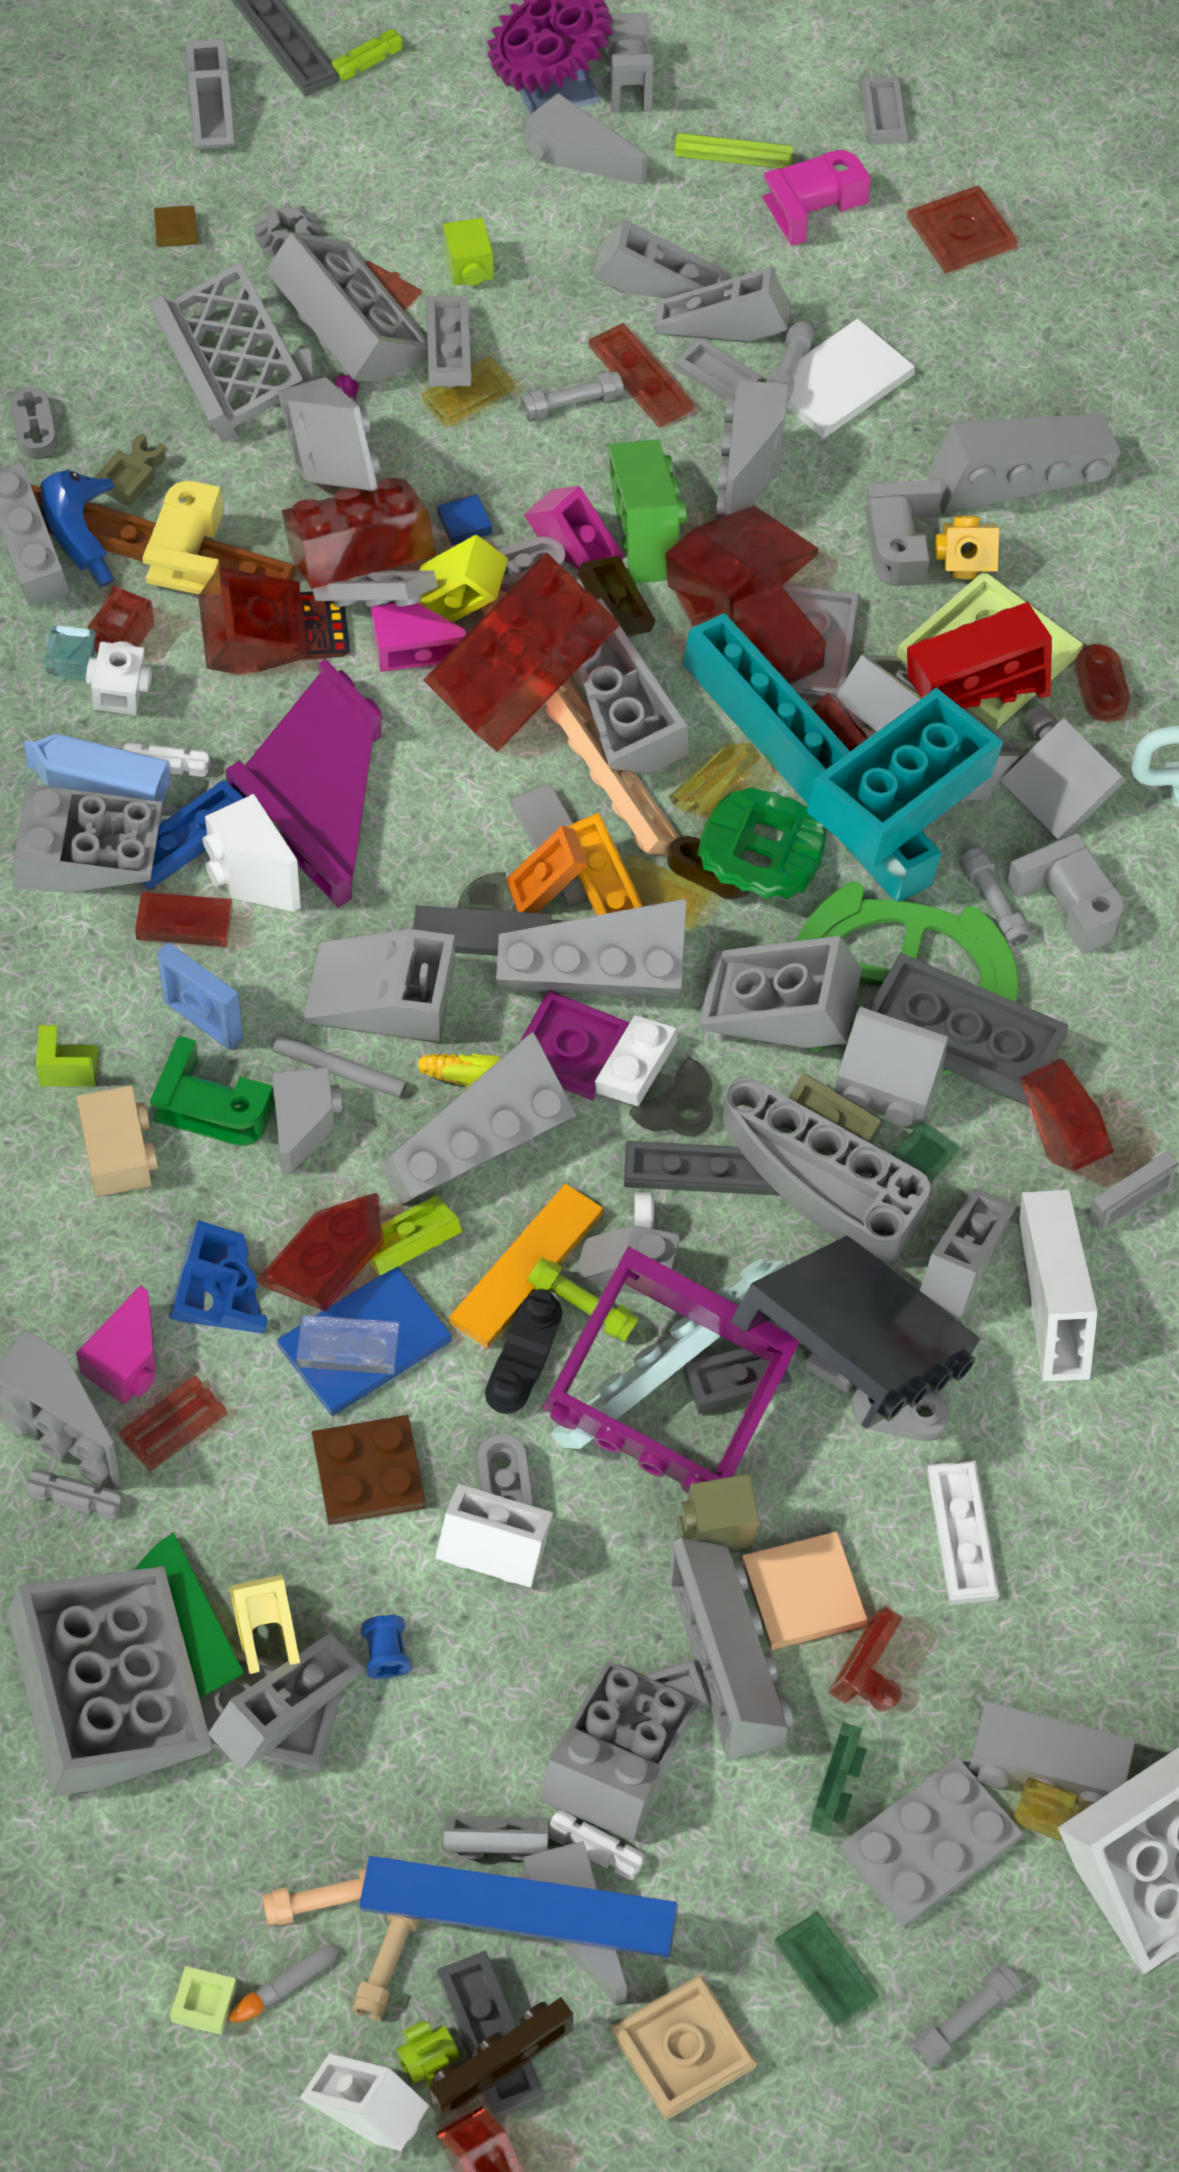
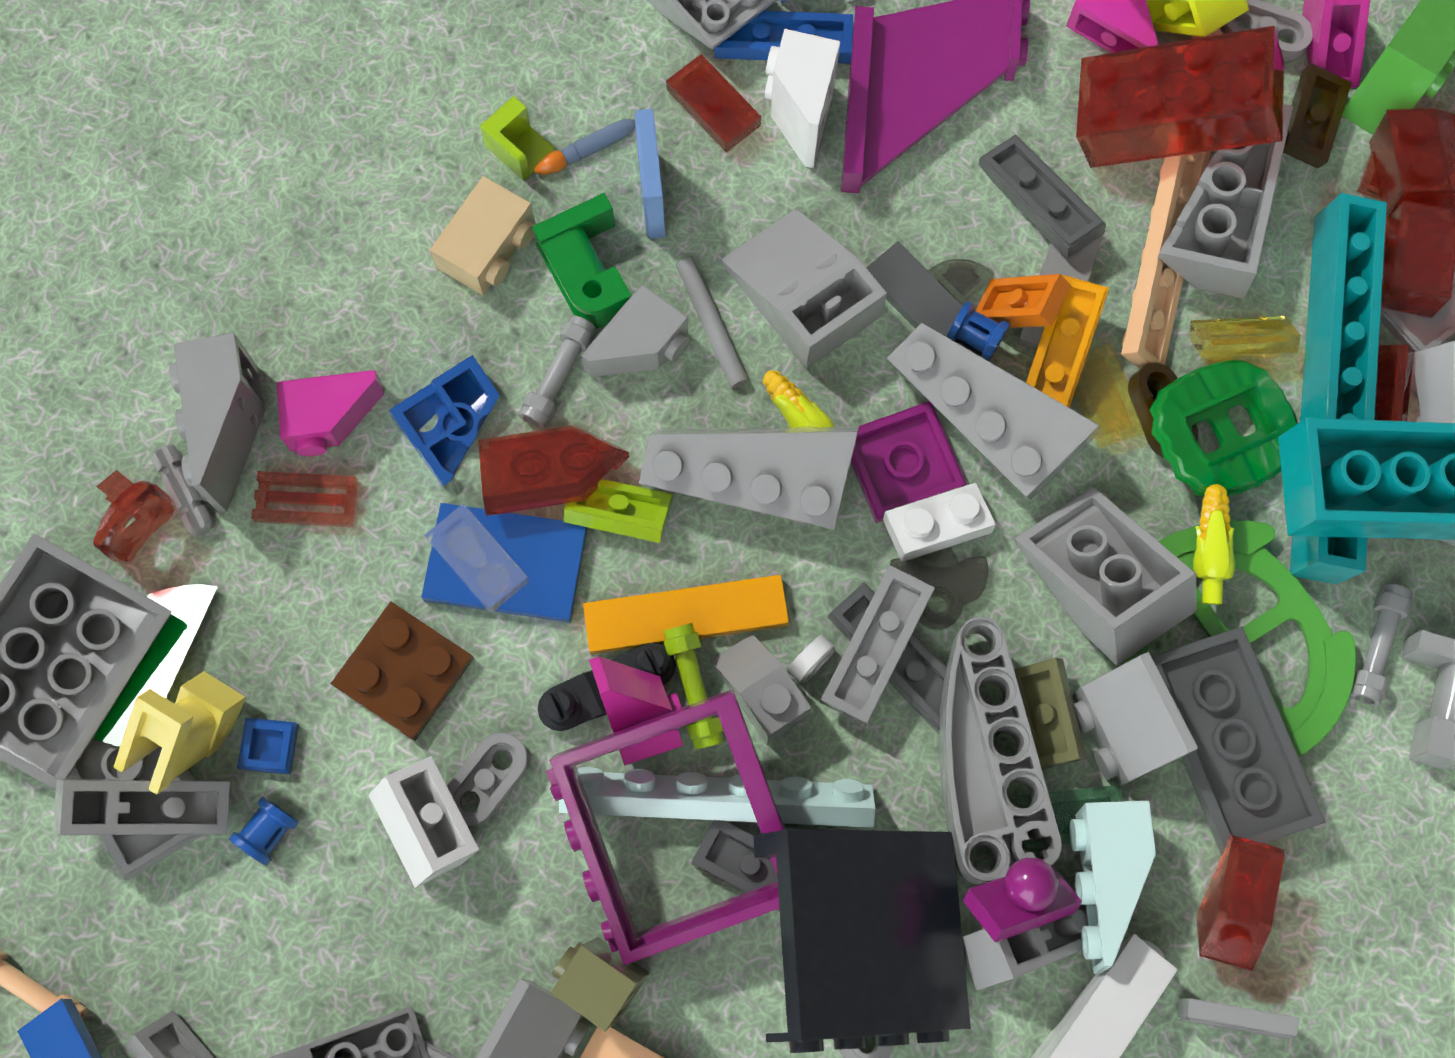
camera: 45 degrees right, 15 degrees up
(63, 1530) = (139, 500): none -> clear red piece
(108, 1050) = (584, 147): none -> sand blue piece
(255, 1155) = (539, 406): none -> light grey bar
(325, 1599) = (268, 746): none -> blue tile
(485, 795) = (1042, 196): none -> dark grey tile
(536, 911) = (978, 330): none -> blue bush
(551, 1337) = (632, 698): none -> dark pink slope
(679, 1165) = (877, 645): none -> light grey plate
(830, 917) = (1214, 545): none -> neon yellow piece
(934, 1222) = (1022, 900): none -> magenta tile
(966, 1161) = (1115, 861): none -> light aqua slope

